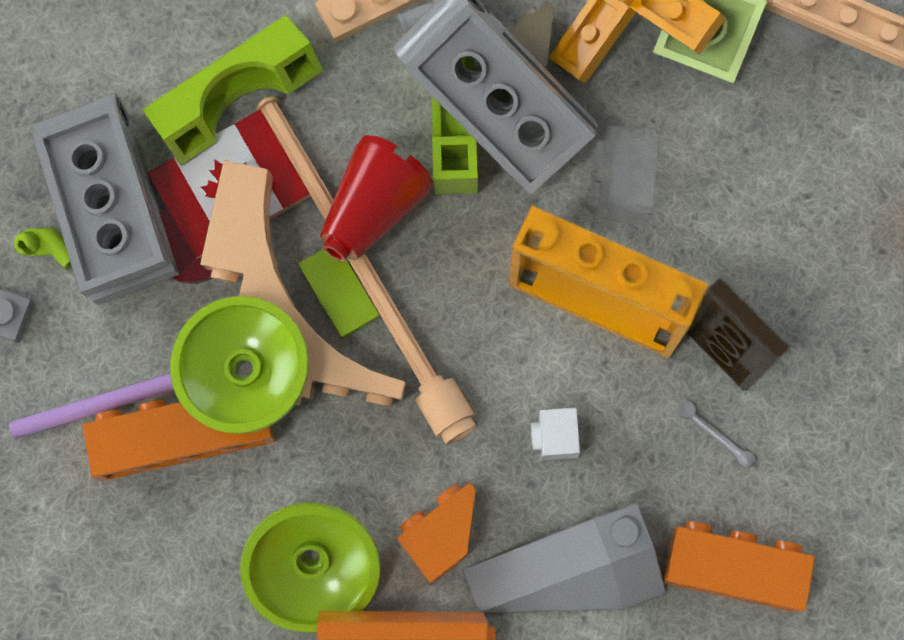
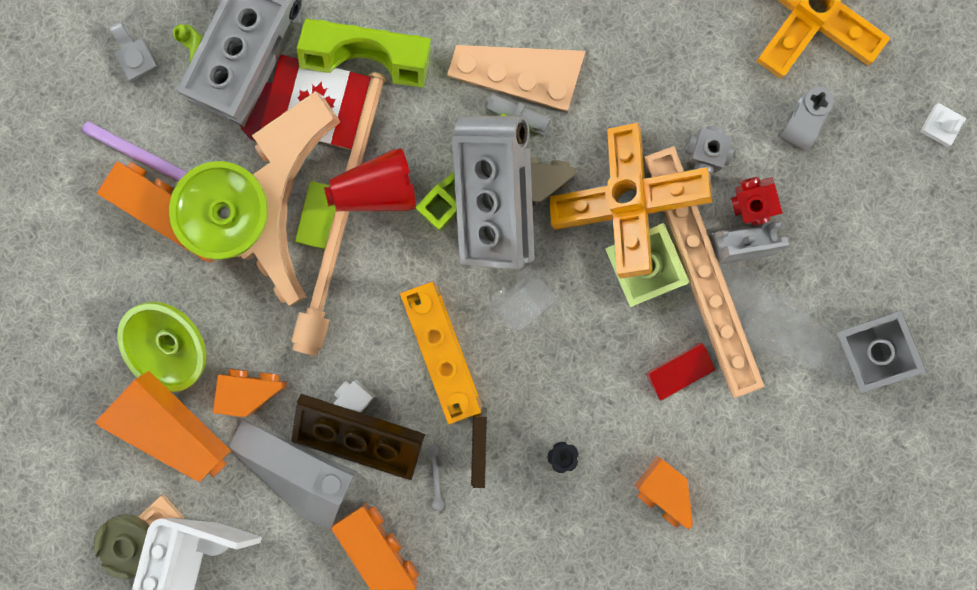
camera: 40 degrees right, 10 degrees up
(599, 464) = (356, 437): none -> dark brown tile
(823, 280) = (569, 463): none -> black plate
(842, 100) = (680, 371): none -> red slope

